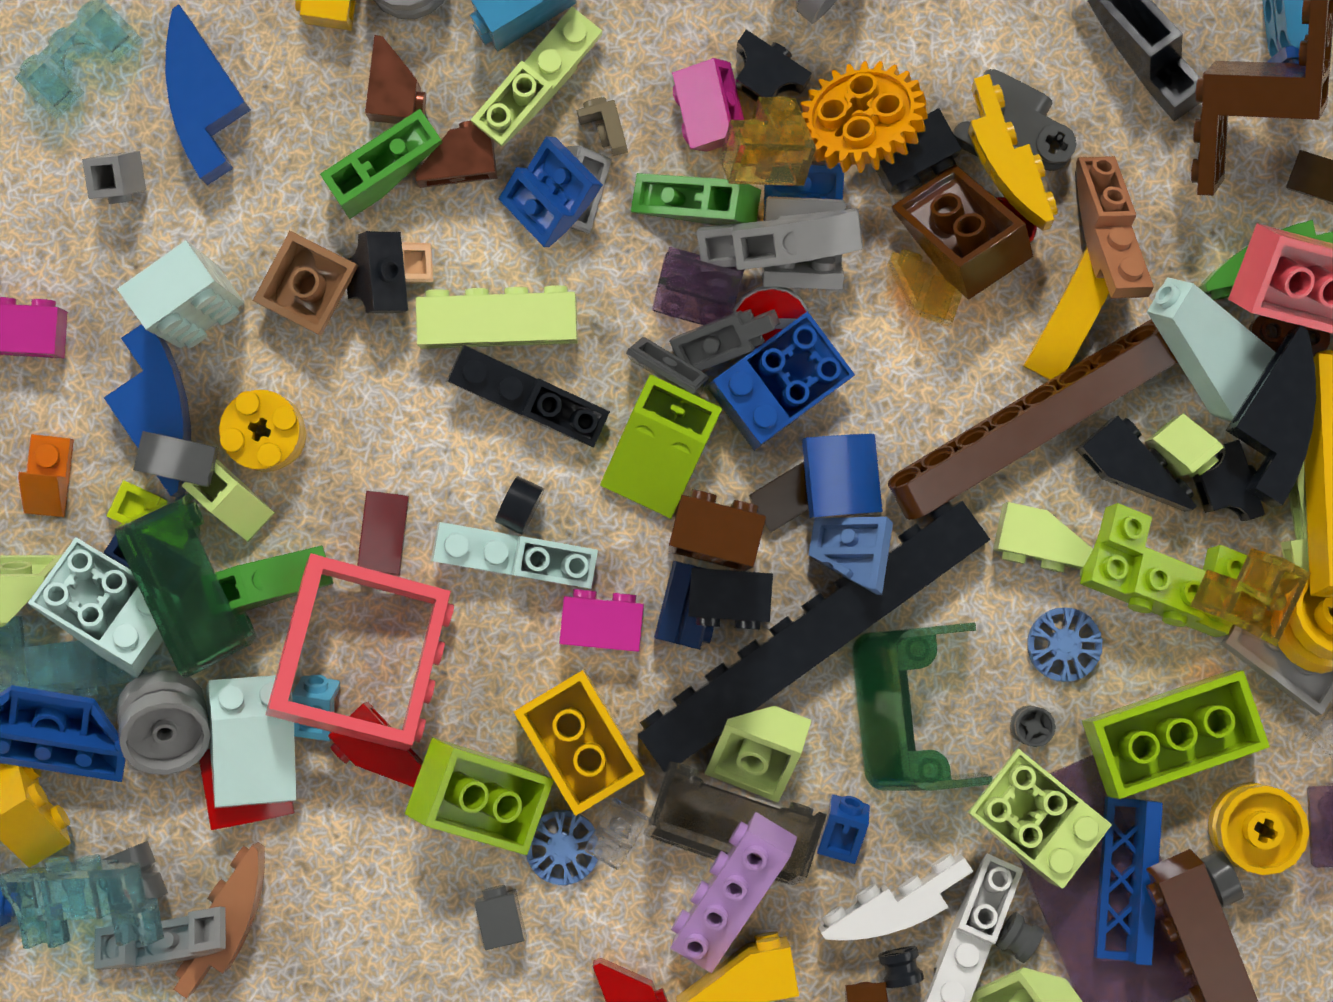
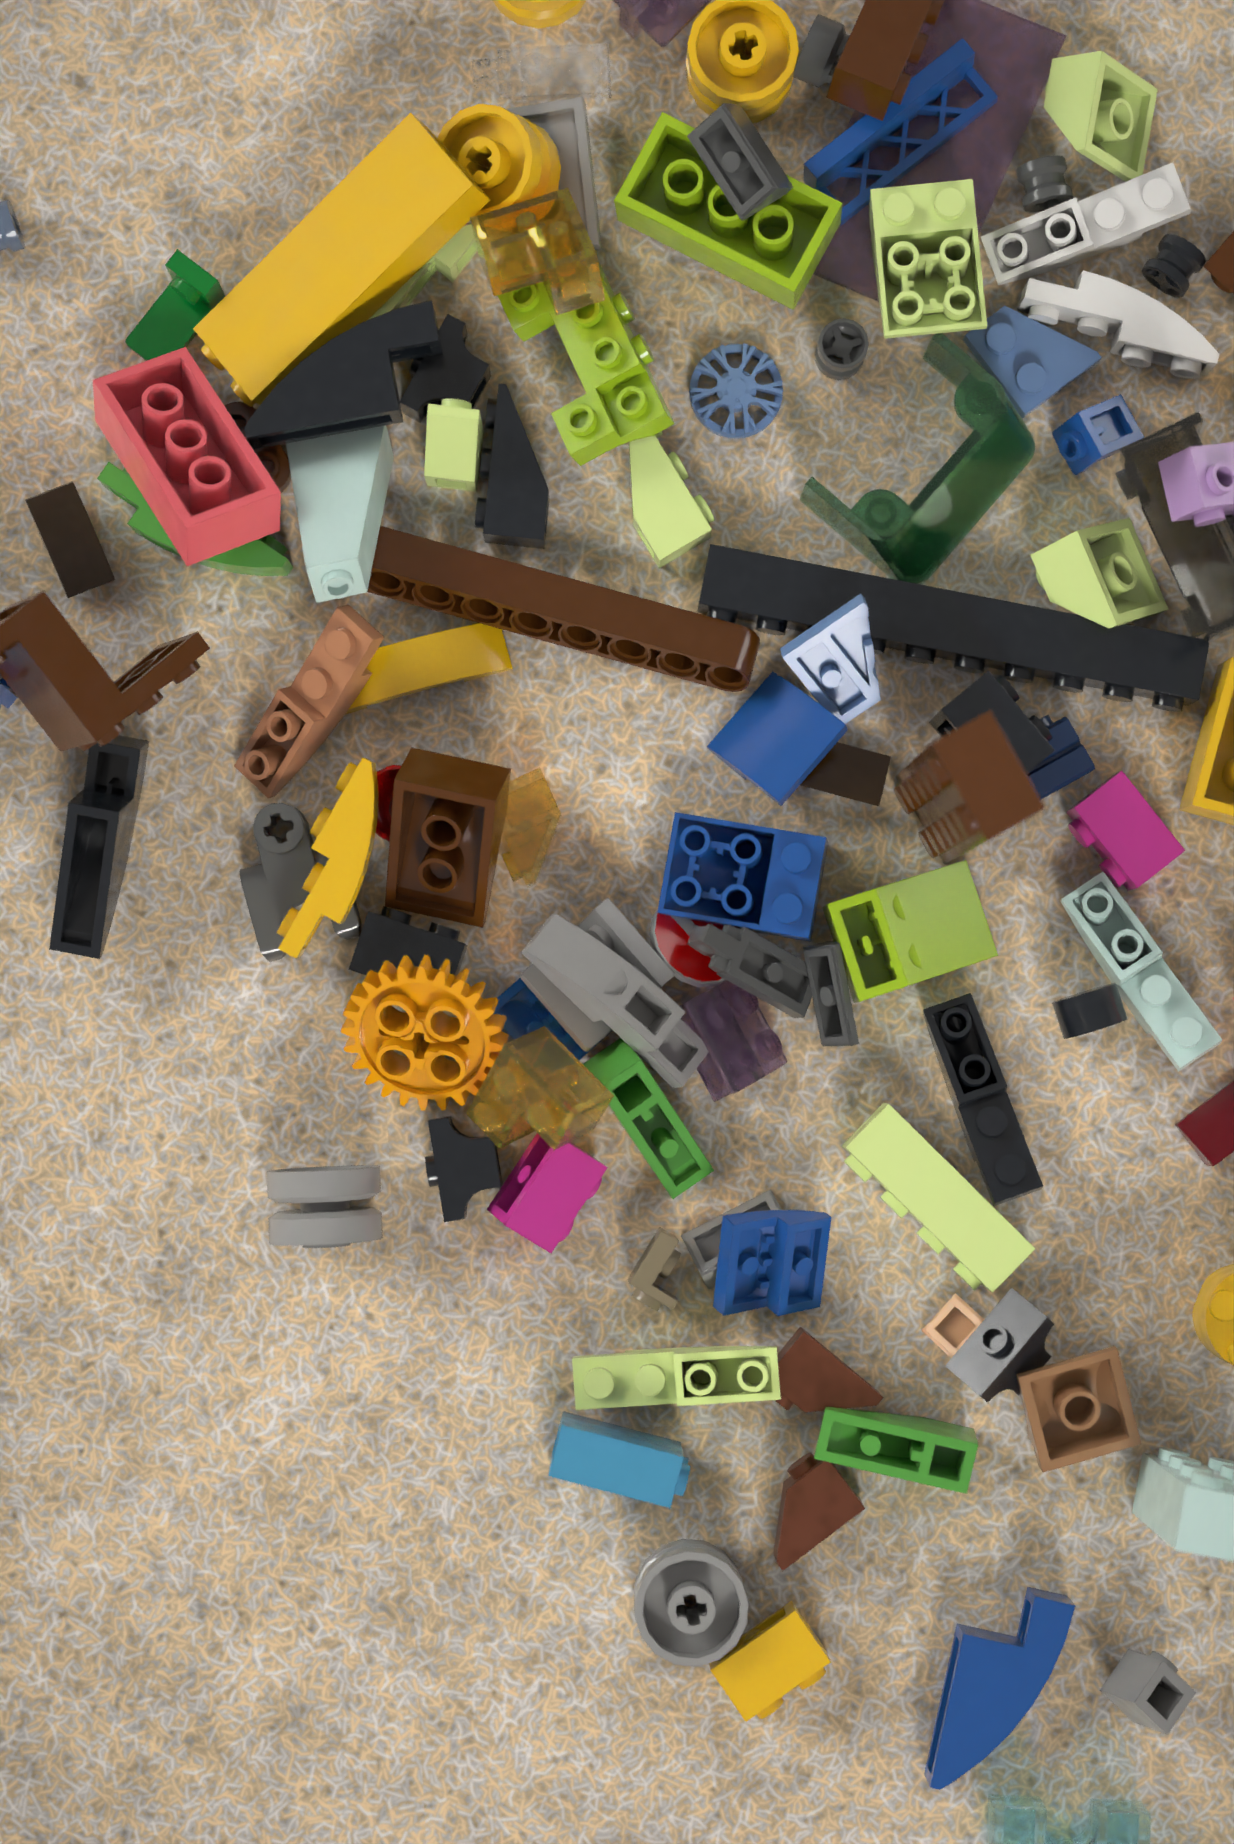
camera: 140 degrees left, 0 degrees up
(925, 832) = (1028, 357): none -> medium blue wing
(1199, 763) = (739, 160): none -> dark grey slope

